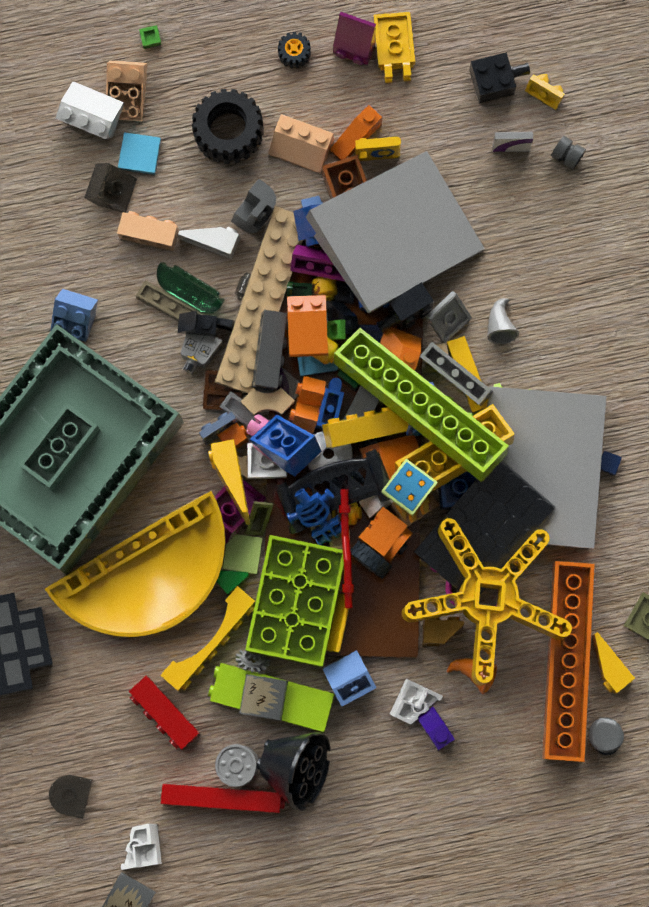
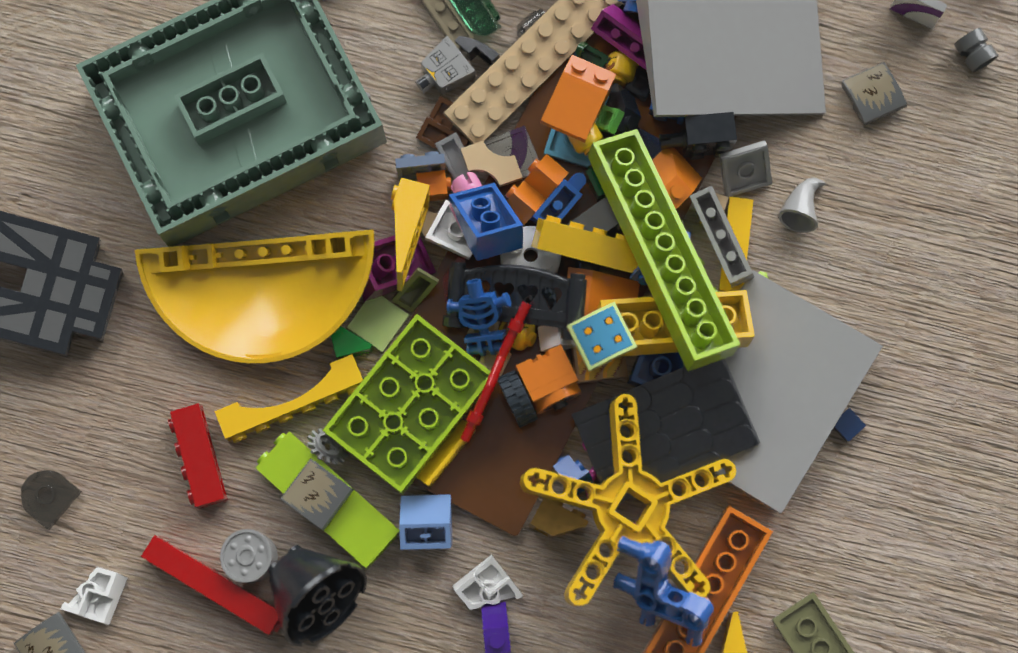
camera: 20 degrees right, 0 degrees up
(197, 324) = (456, 39): black slope -> none
(269, 350) = (522, 106): dark grey brick -> none
(435, 589) = (569, 468): none -> brick
(465, 665) = (564, 574): orange hat -> none
(512, 218) = (874, 93): none -> slope
(537, 648) = (657, 595): none -> blue pin

